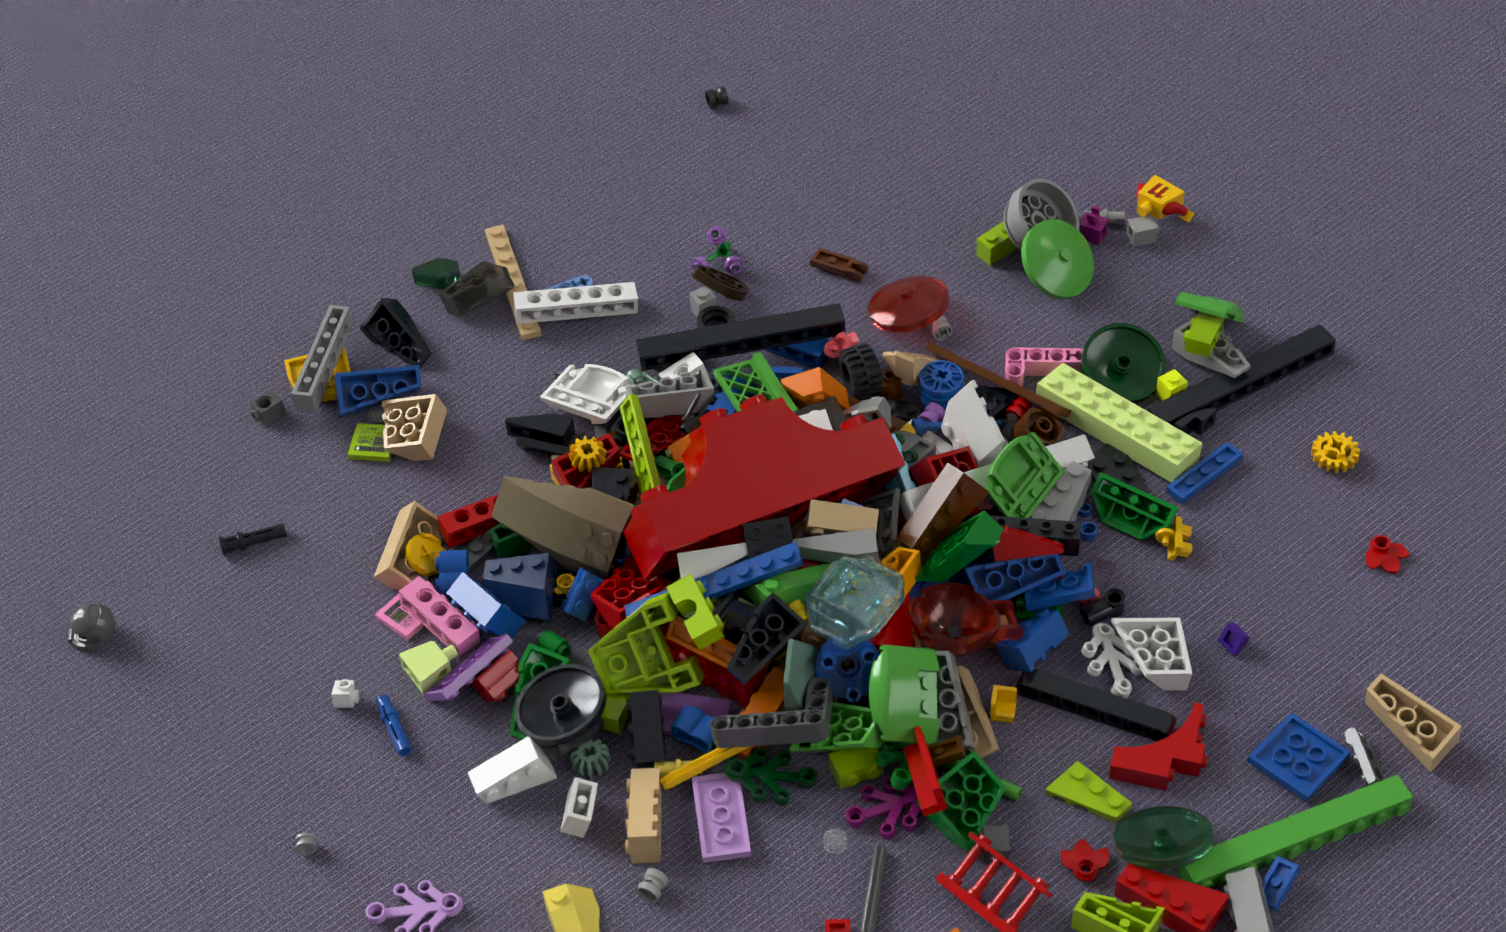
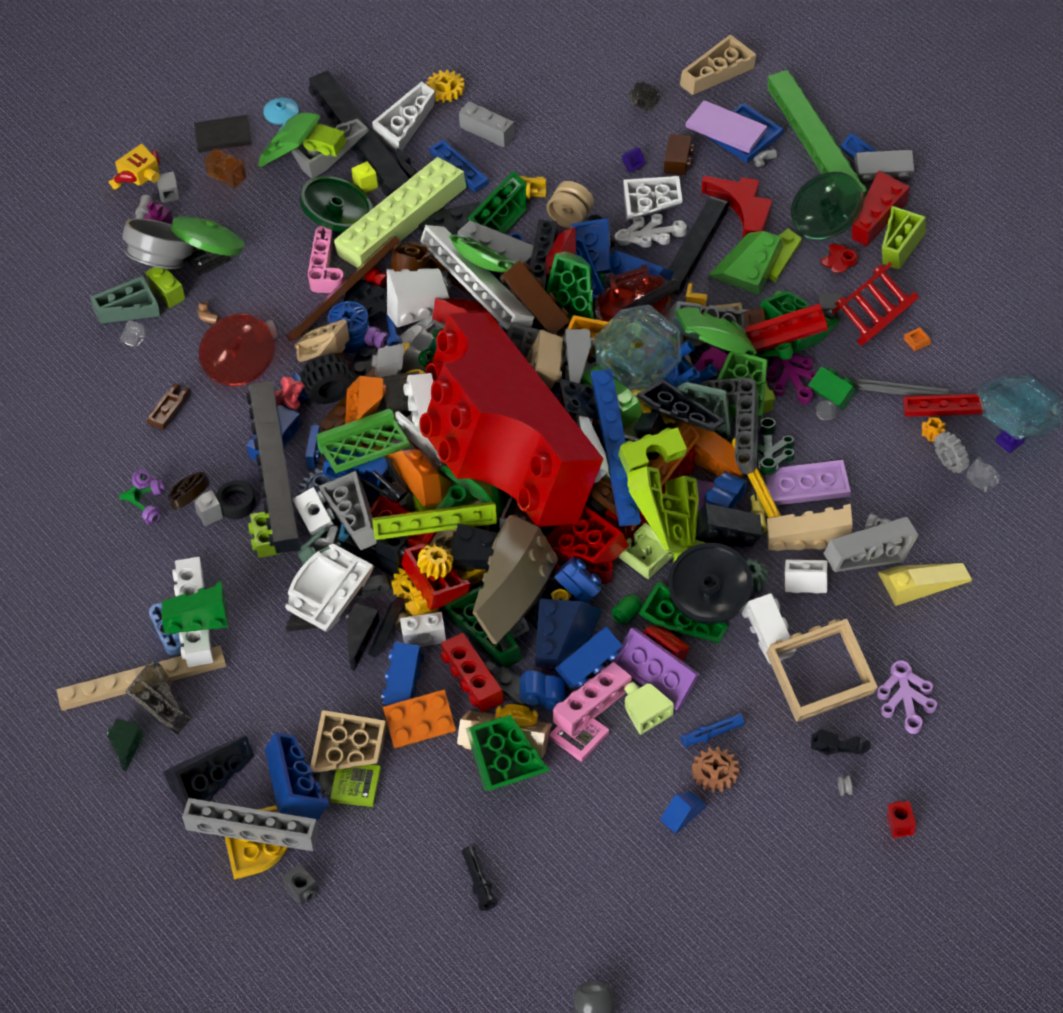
camera: 90 degrees left, 5 degrees up
(246, 894) = (897, 826): none -> red brick
(303, 702) = (682, 810): none -> blue slope
(342, 726) = (715, 769): none -> nougat gear
(344, 694) = (680, 771): white plate -> none
(359, 833) = (829, 743): none -> black piece
(370, 533) = (503, 753): none -> green wedge
(427, 786) = (816, 633): none -> tan window
(433, 478) = (419, 718): none -> orange plate
(484, 463) = (403, 673): none -> blue wedge
(539, 467) = (423, 629): none -> white brick
(552, 291) = (196, 611): none -> green wedge
(605, 863) = (872, 547): none -> light grey wedge
(859, 840) = (833, 388): none -> green brick
(935, 229) = (133, 333): none -> clear slope
(964, 280) = (205, 315): none -> medium nougat arm
(971, 213) = (125, 302): none -> sand green wedge
(1059, 756) = (750, 262): none -> bright green wedge
(1138, 570) = (570, 204): none -> tan wheel
(1174, 272) = (225, 167): none -> clear orange brick
(1234, 269) = (223, 133): none -> clear smoke tile
(1247, 684) = (678, 154): none -> reddish brown brick
(1260, 777) = (764, 155): none -> light grey arm
(1271, 415) = (404, 117): none -> white wedge
(1273, 492) = (486, 124): none -> light grey brick
(1279, 315) = (280, 110): none -> medium azure dish
(1298, 731) = (726, 126): none -> lavender tile
(1341, 643) = (644, 96): none -> clear smoke gear
(1364, 756) = (747, 96): hinge -> none
(1385, 554) = (550, 70): red plate -> none

